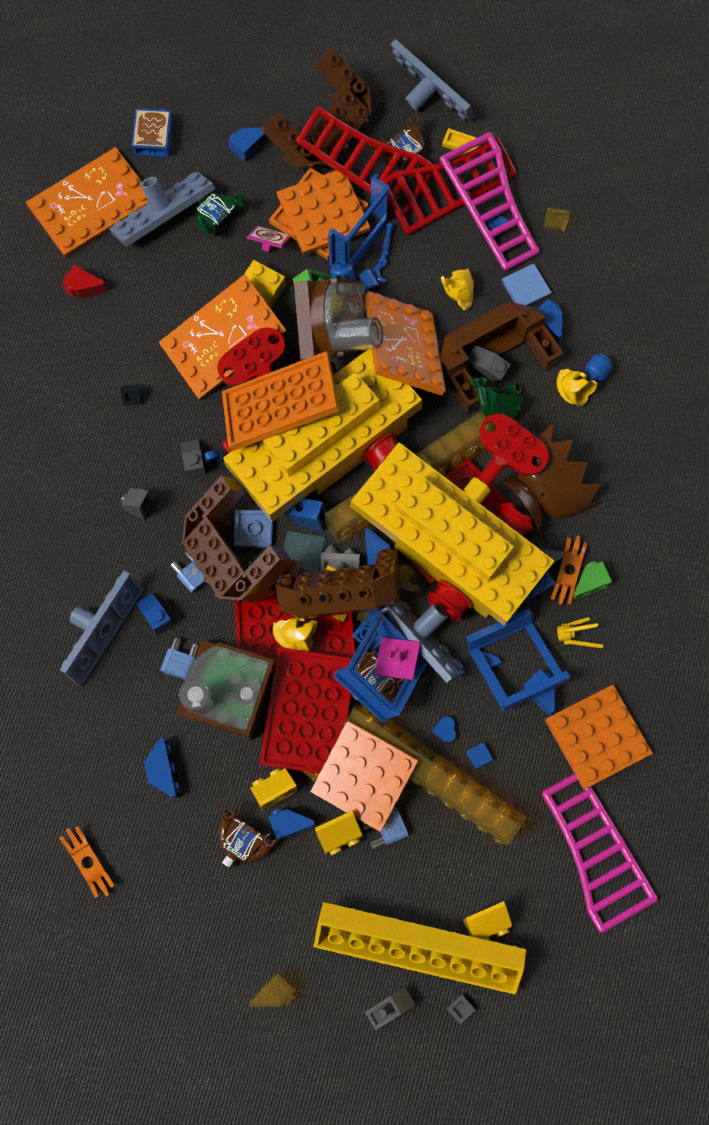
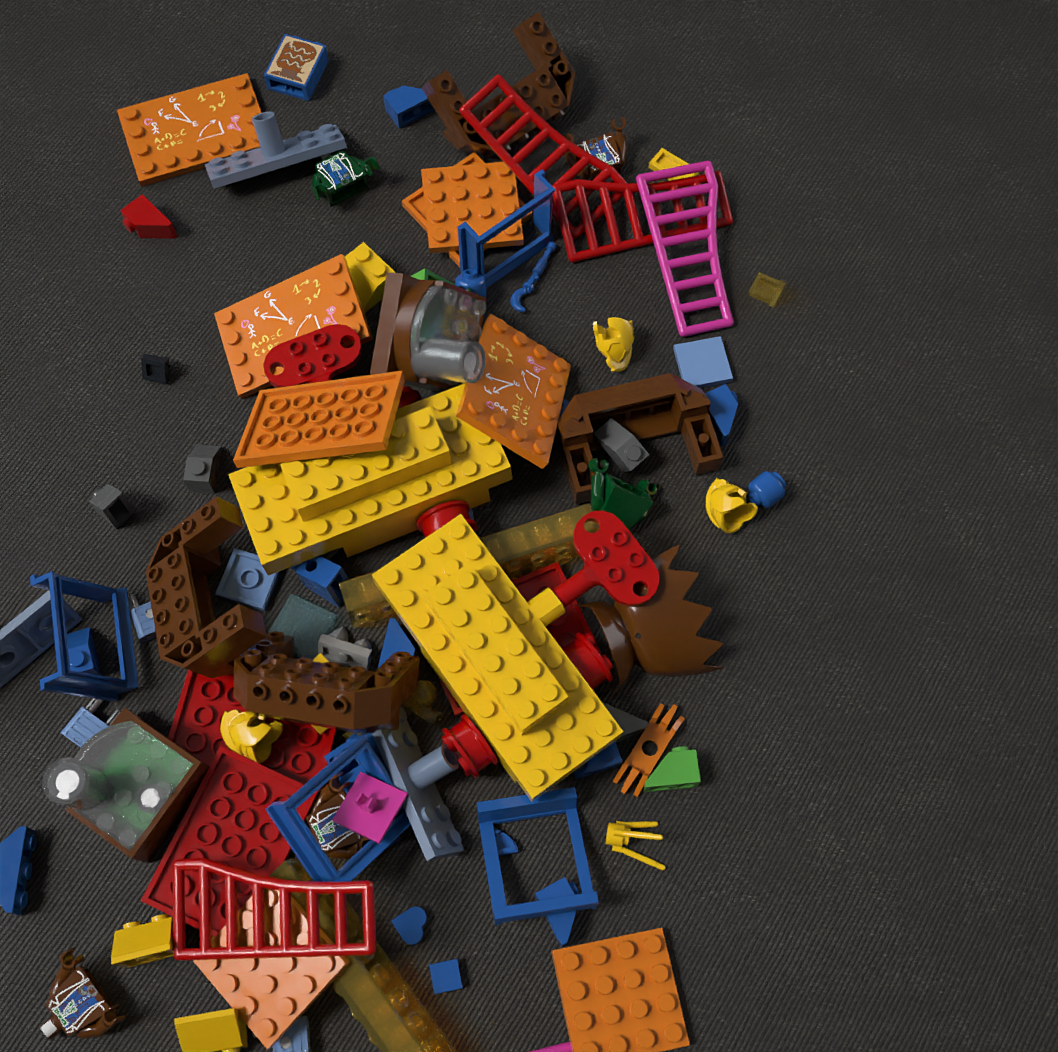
camera: 15 degrees right, 5 degrees down
(165, 630) = (82, 683): none -> blue piece
(213, 457) = (223, 470): blue tile -> none
(268, 237) = (394, 222): piece -> none
(288, 823) = (150, 997): blue slope -> none
(343, 726) = (285, 887): none -> red bar
(369, 281) = (503, 305): blue piece -> none
(429, 84) = (653, 90): sand blue plate -> none
(495, 222) = (685, 273): blue tile -> none

